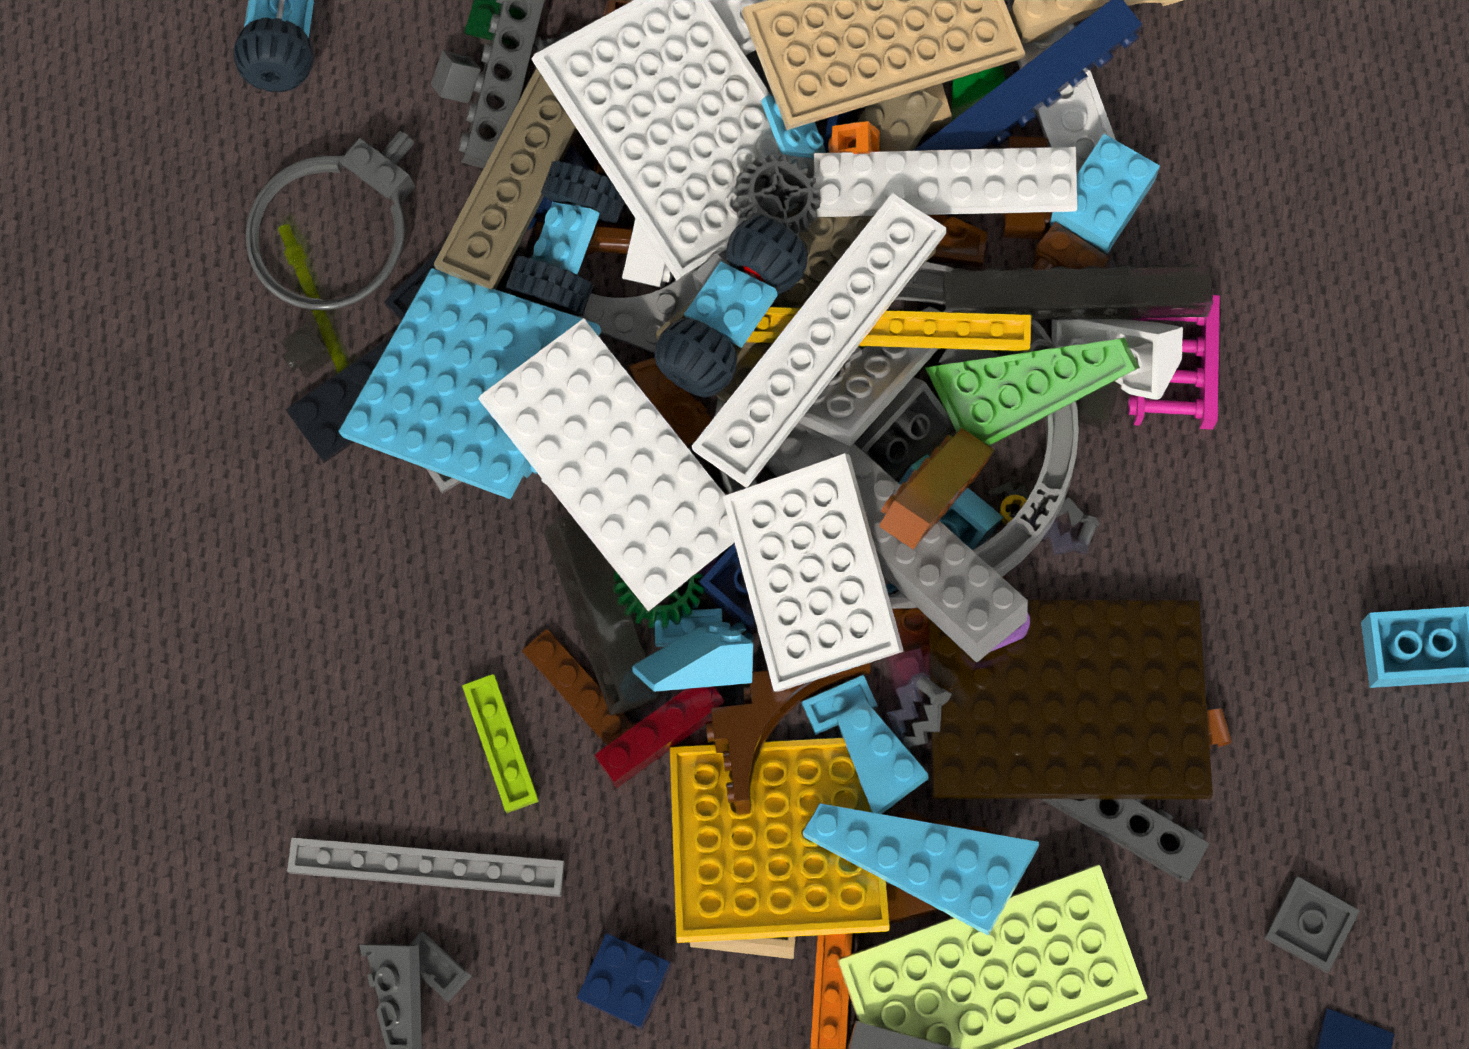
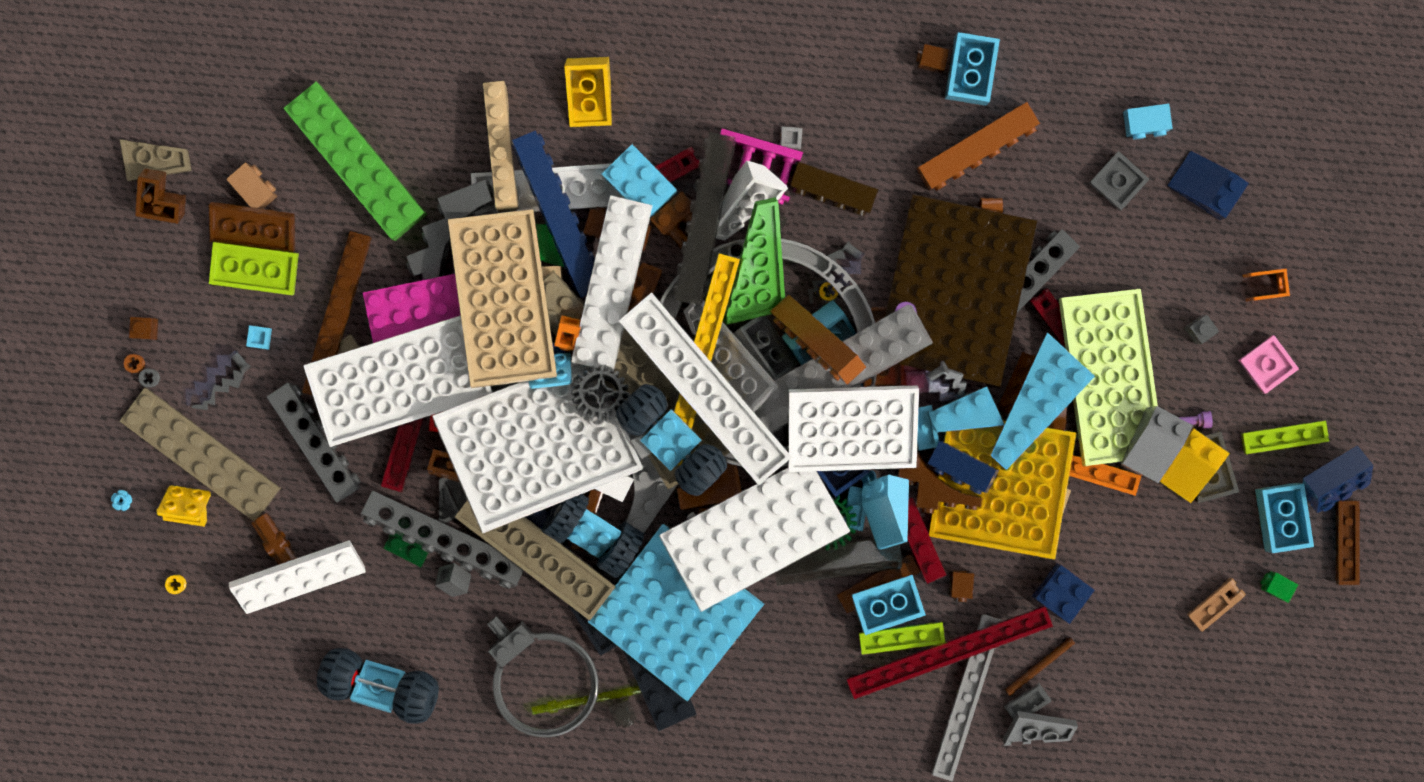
camera: 85 degrees left, 15 degrees up
(494, 821) = (949, 652): none -> dark red plate
(498, 975) = (1039, 666): none -> reddish brown bar
(549, 703) = (888, 605): none -> medium azure slope
(602, 816) = (961, 585): none -> reddish brown brick
(790, 768) = (963, 468): none -> dark blue brick
(1069, 860) = (1051, 314): none -> dark red plate
(1140, 246) = (674, 169): none -> dark red plate
(1174, 483) = (833, 188): none -> dark brown brick
(1219, 103) = (588, 91): none -> yellow slope
(1234, 406) = (791, 137): none -> light grey tile
(1302, 687) = (978, 146): none -> dark orange brick
(1418, 585) = (932, 58): none -> reddish brown brick
(1421, 947) = (1147, 121): none -> medium azure brick

